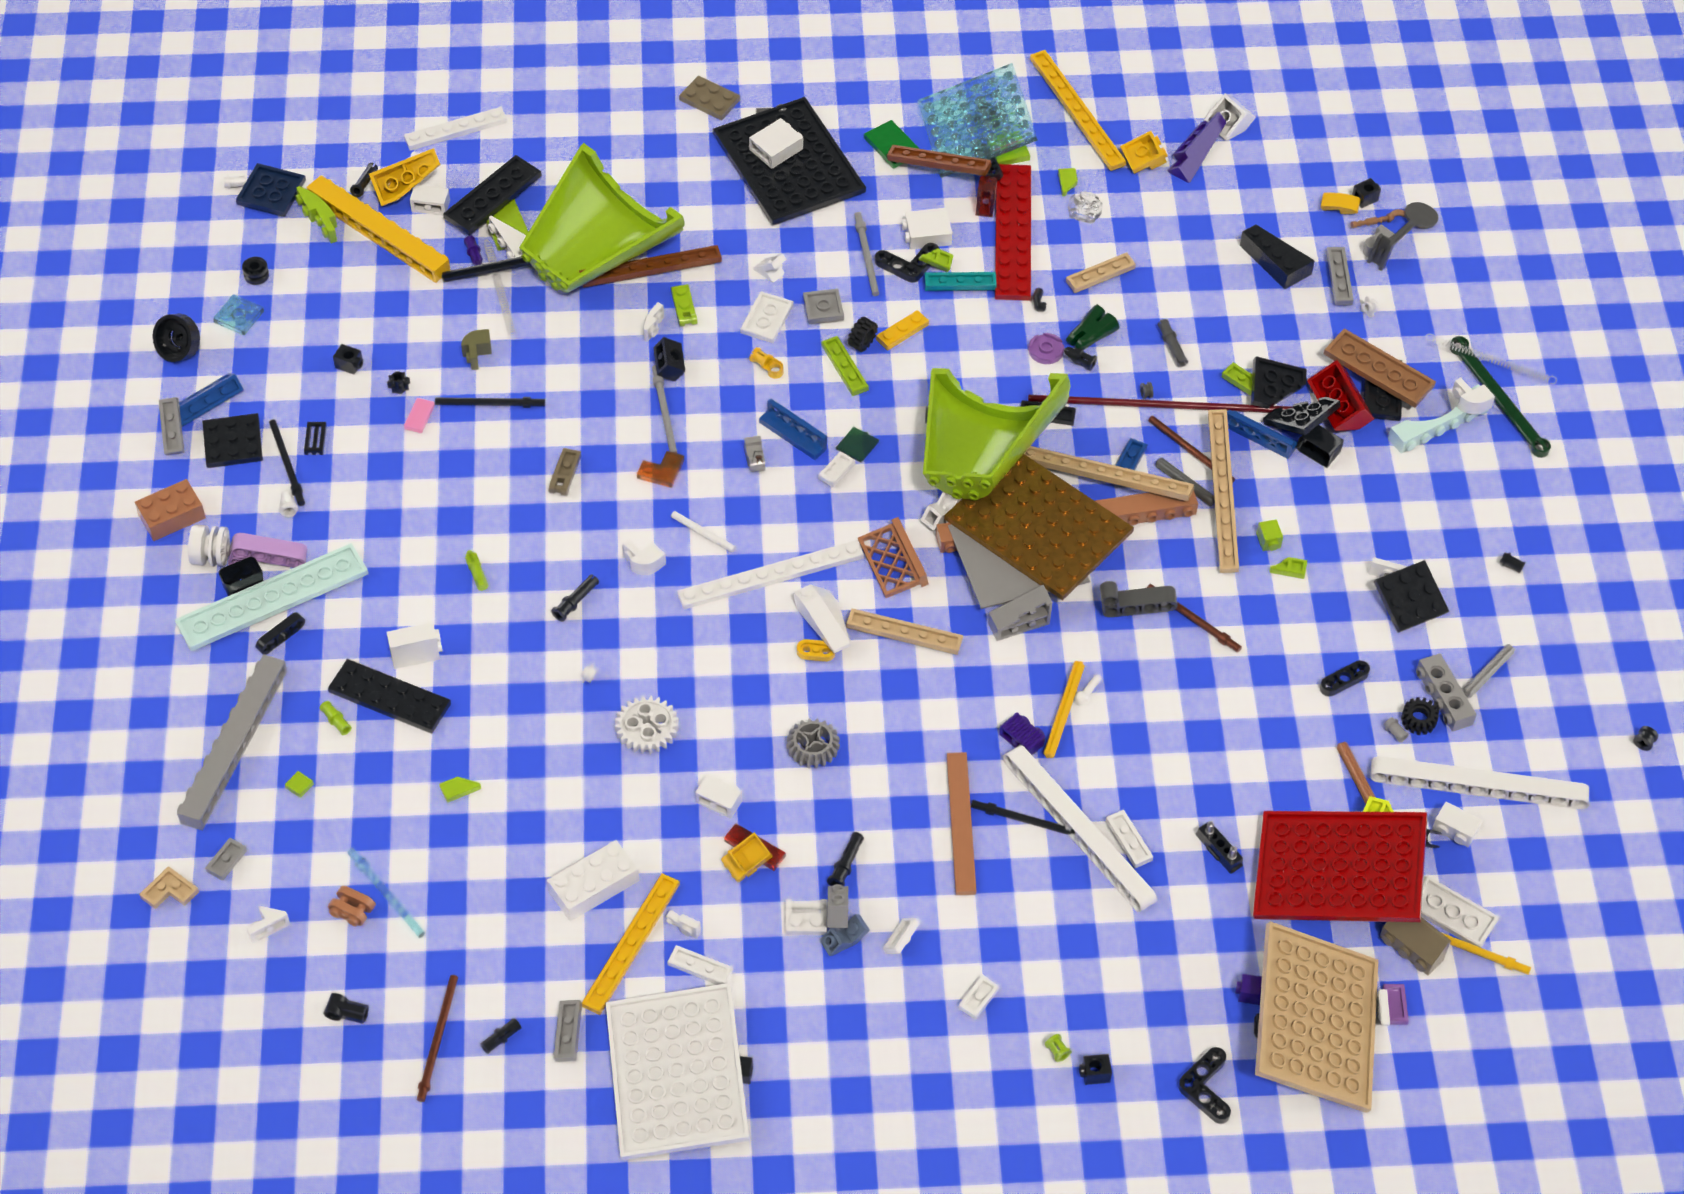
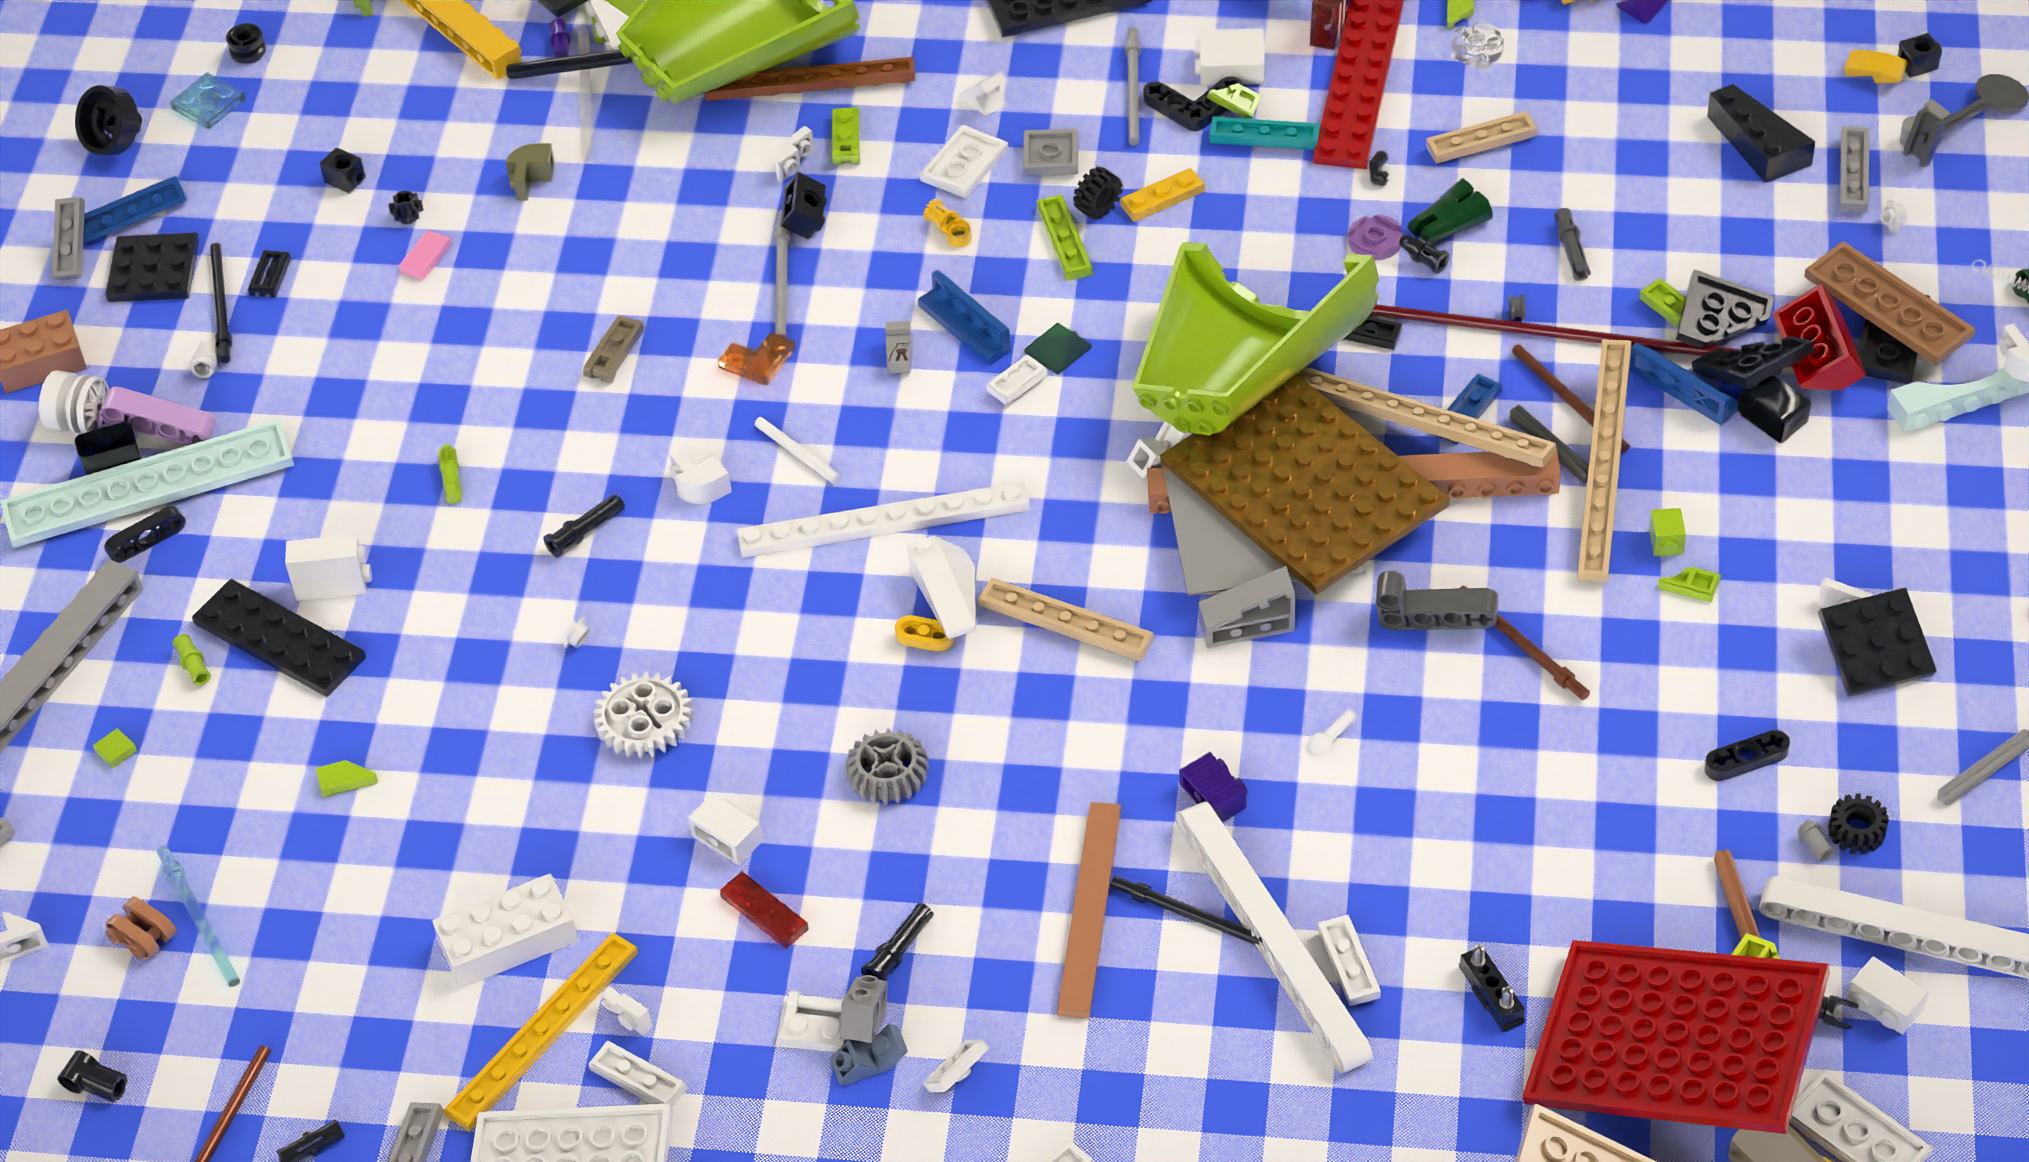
camera: 15 degrees right, 5 degrees down
(526, 402) = (581, 249): black bar -> none
(746, 857) = (744, 922): yellow piece -> none
(906, 550) = (1093, 501): nougat fence -> none
(1064, 709) = (1287, 757): yellow axle -> none
(1374, 220) = (1924, 95): medium nougat piece -> none
(1453, 695) = (1907, 792): light grey brick -> none

